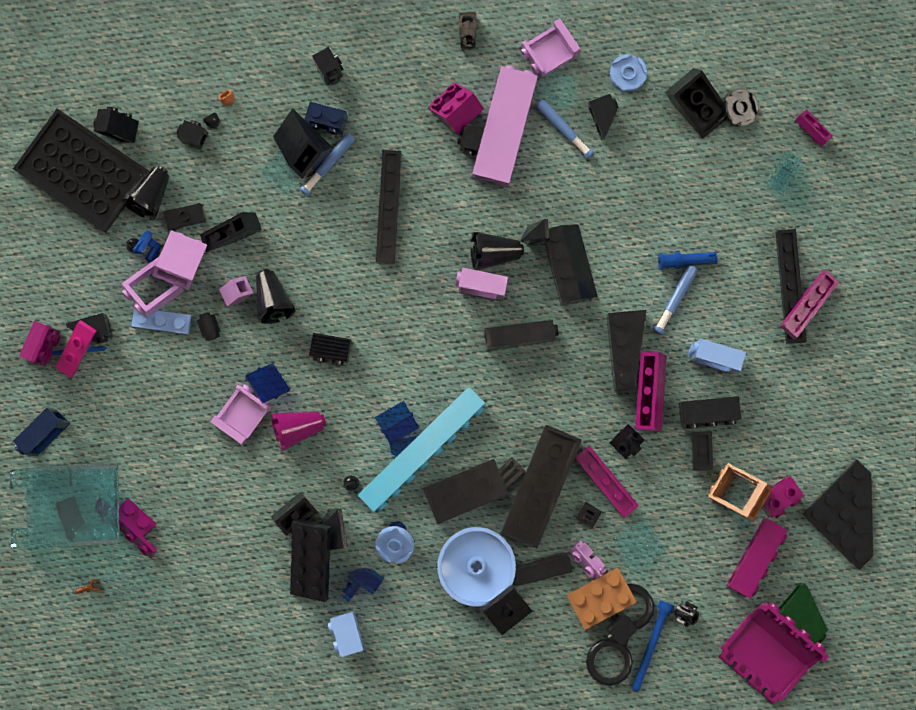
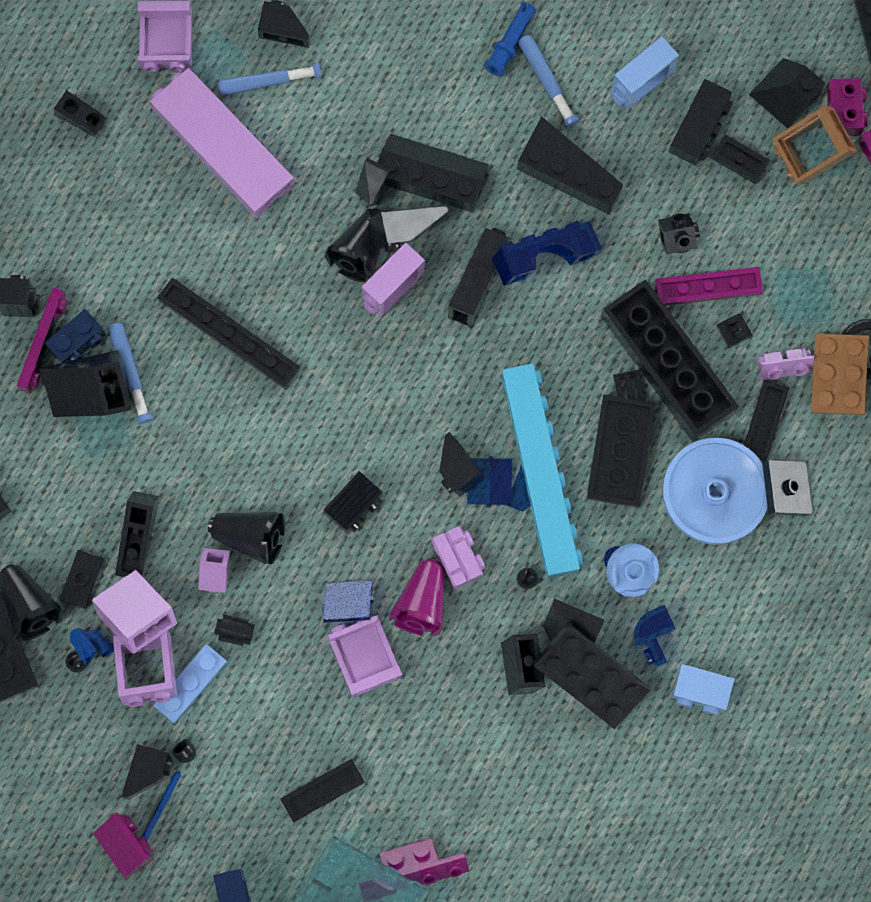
camera: 65 degrees left, 5 degrees down
(76, 349) = (160, 804): dark pink plate -> none
(118, 343) = (184, 751): none -> black hinge
(144, 440) = (322, 790): none -> black plate
(336, 432) = (457, 557): none -> lavender brick
(338, 93) = (30, 376): none -> magenta plate
(392, 397) = (457, 467): none -> black slope
(456, 107) = (162, 183): magenta slope -> none
(470, 140) = (213, 191): black brick -> none
(517, 268) = (396, 228): none -> slope
(578, 381) = (573, 244): none -> clear blue arch
(651, 391) = (638, 172): magenta brick -> none
(766, 453) = (787, 91): none -> black slope

